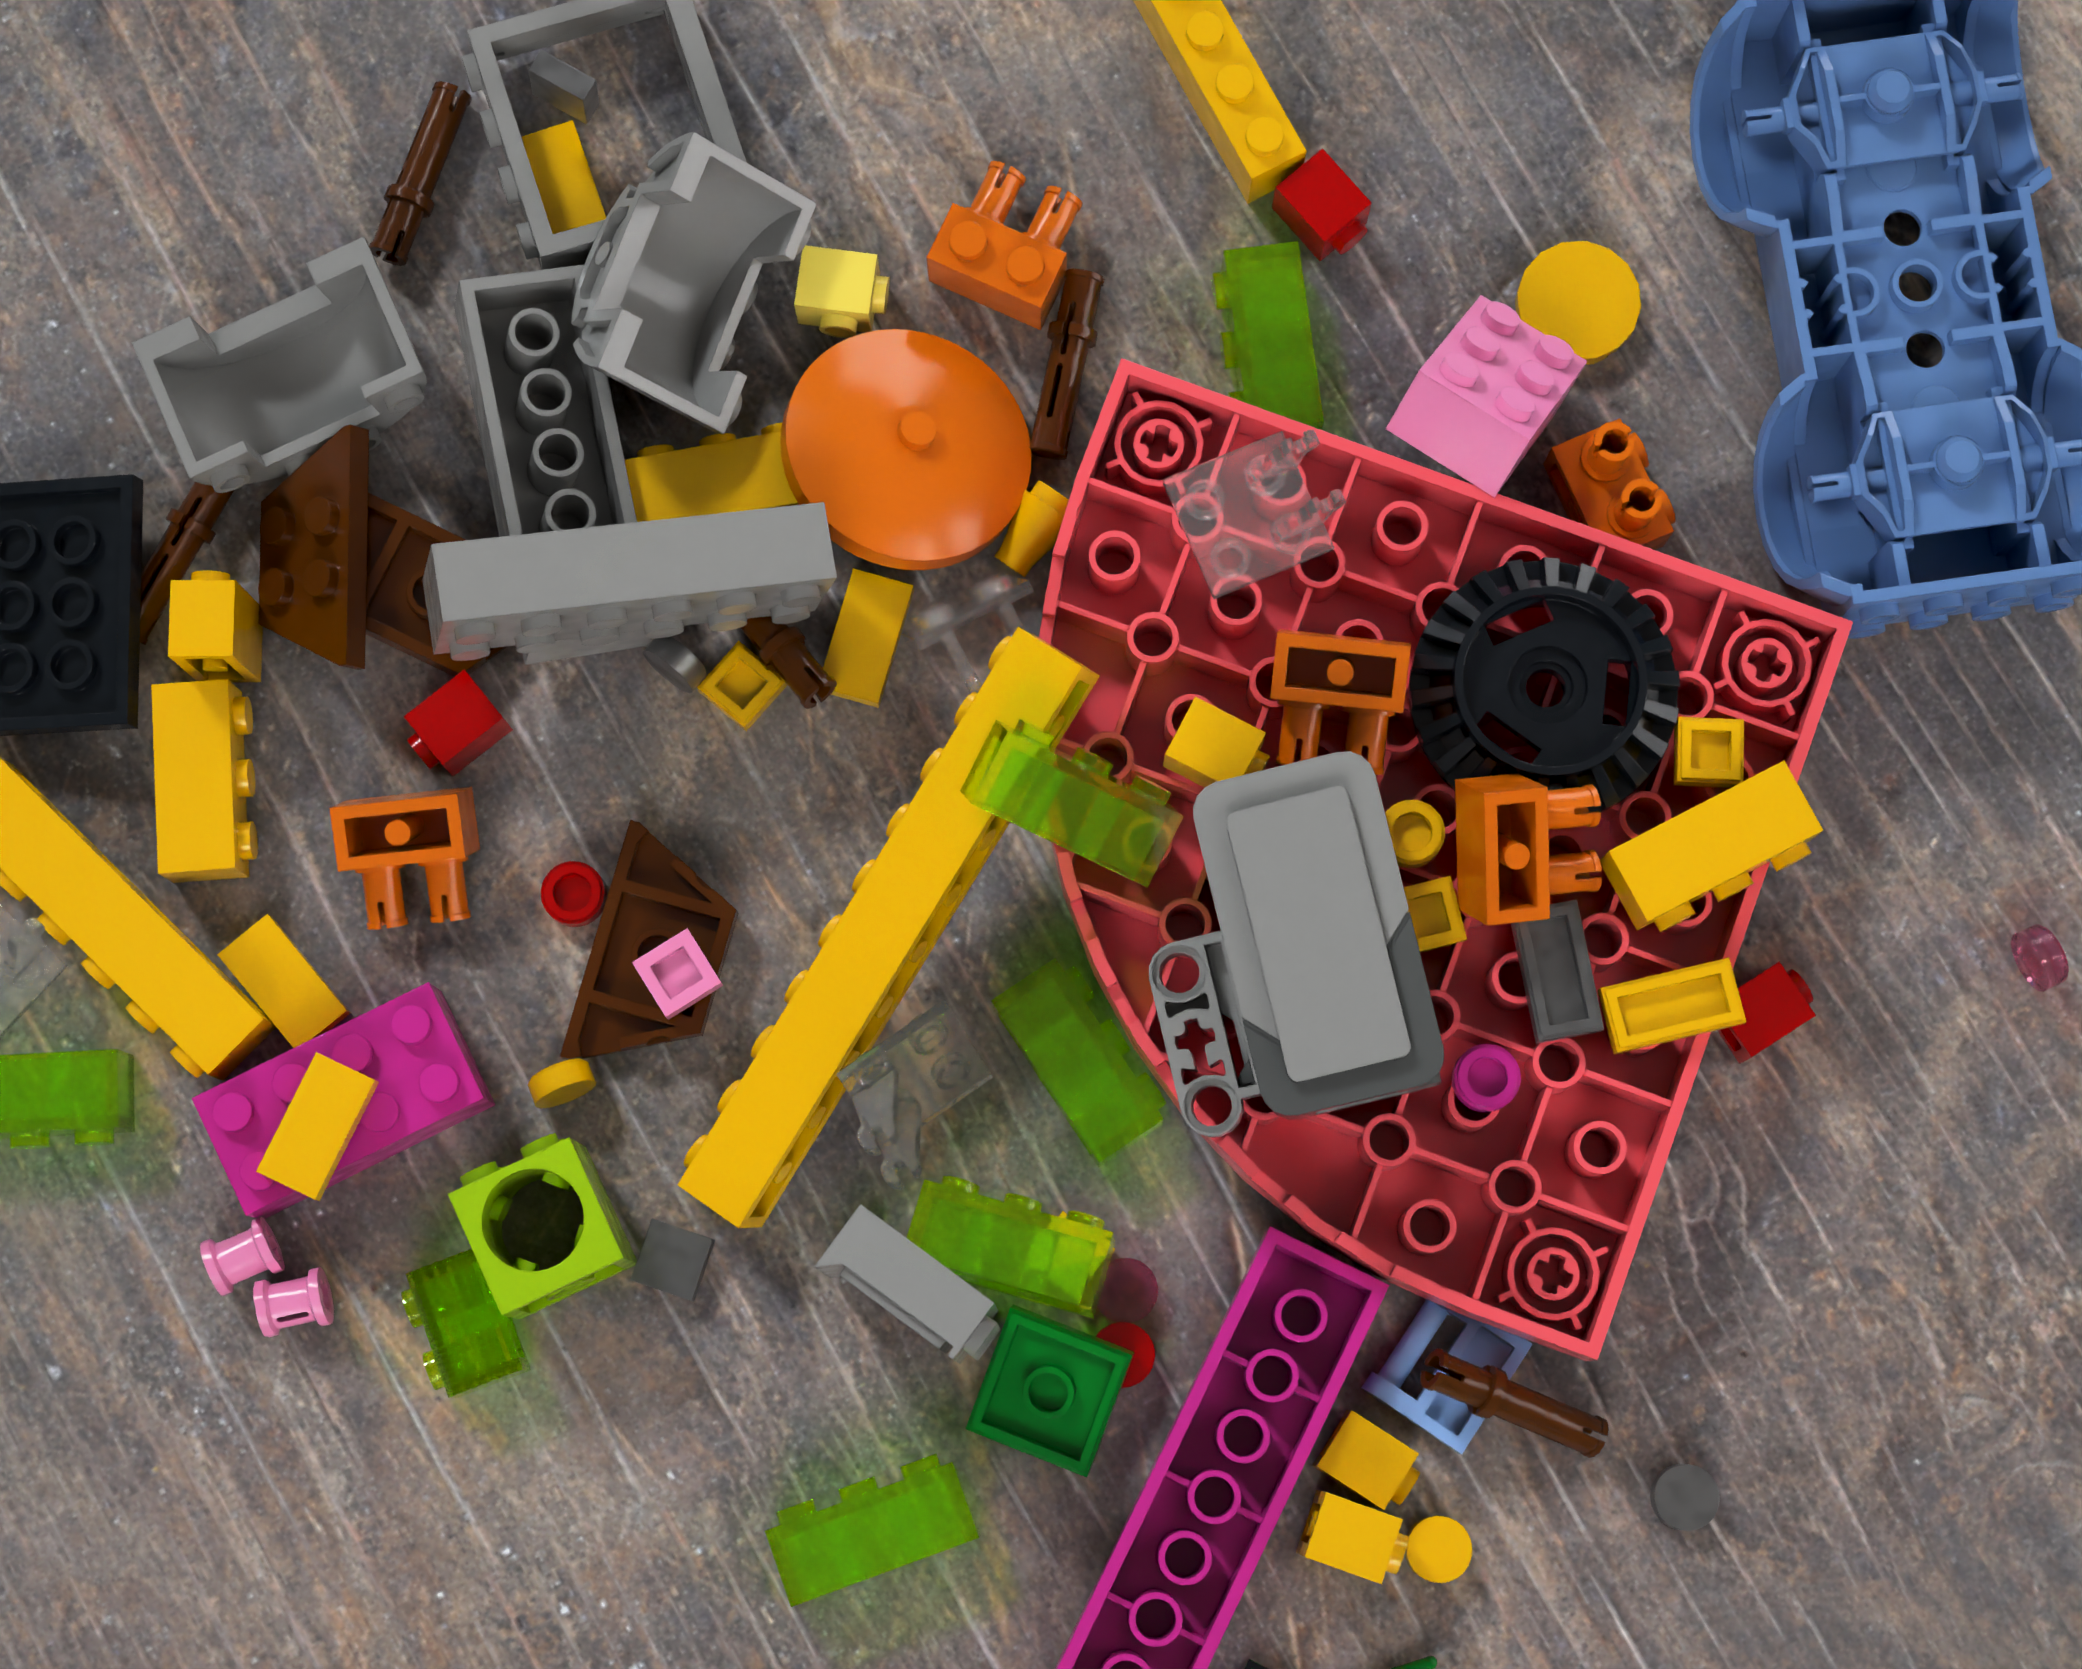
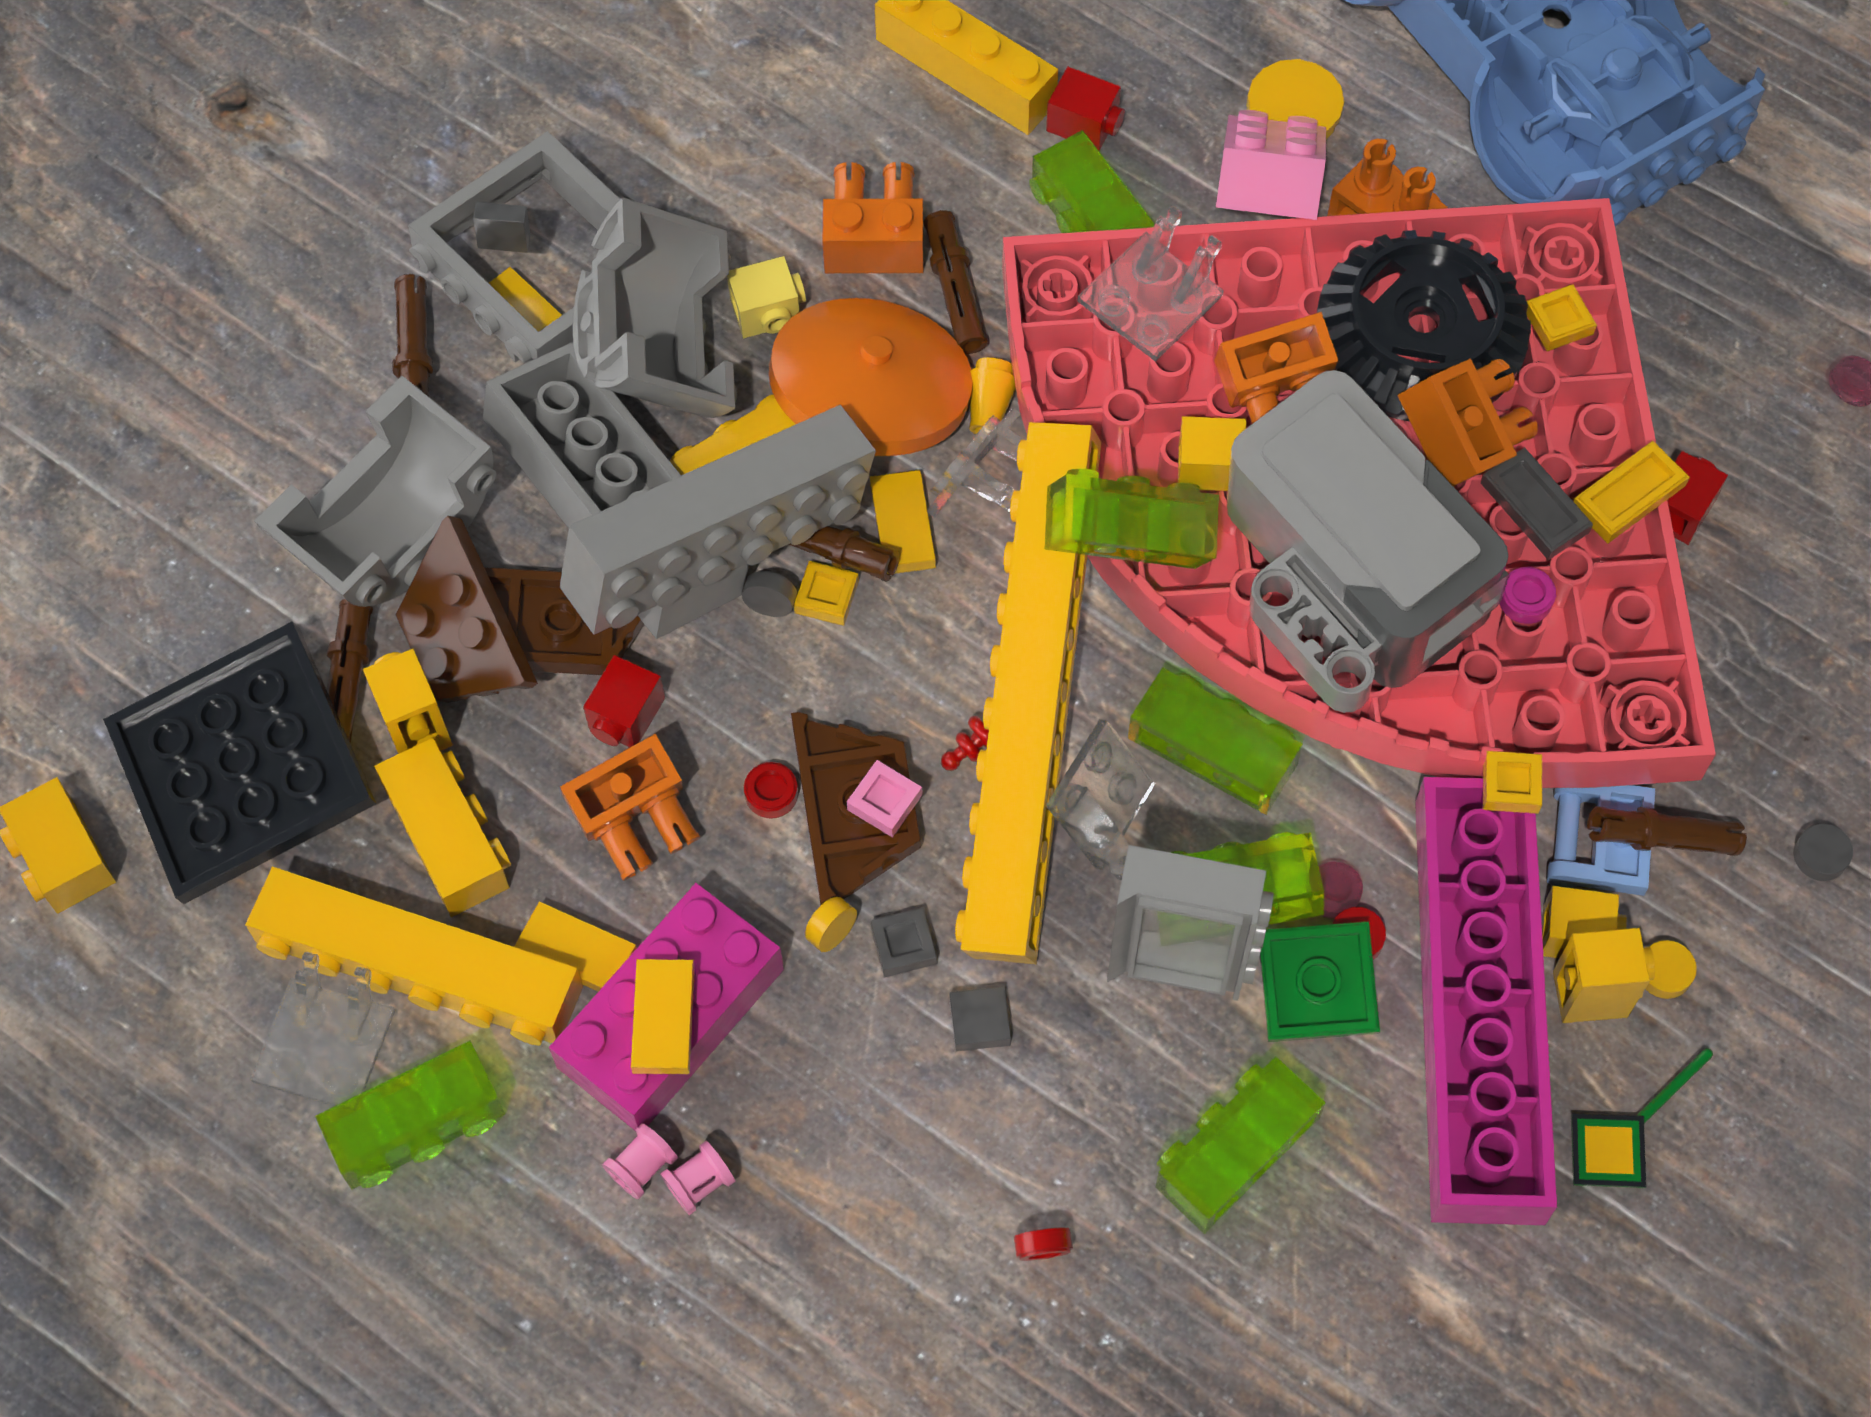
camera: 25 degrees left, 15 degrees down
(463, 1325) = (842, 1131): clear neon green brick -> none
(599, 1245) = (883, 1071): lime brick -> none
(615, 1542) = (1043, 1244): none -> red tile
(633, 1135) = (903, 942): none -> flat silver tile
(805, 943) = (968, 746): none -> red hair
(1357, 1284) = (1512, 782): none -> yellow plate
(1712, 848) = (1600, 372): yellow brick -> none

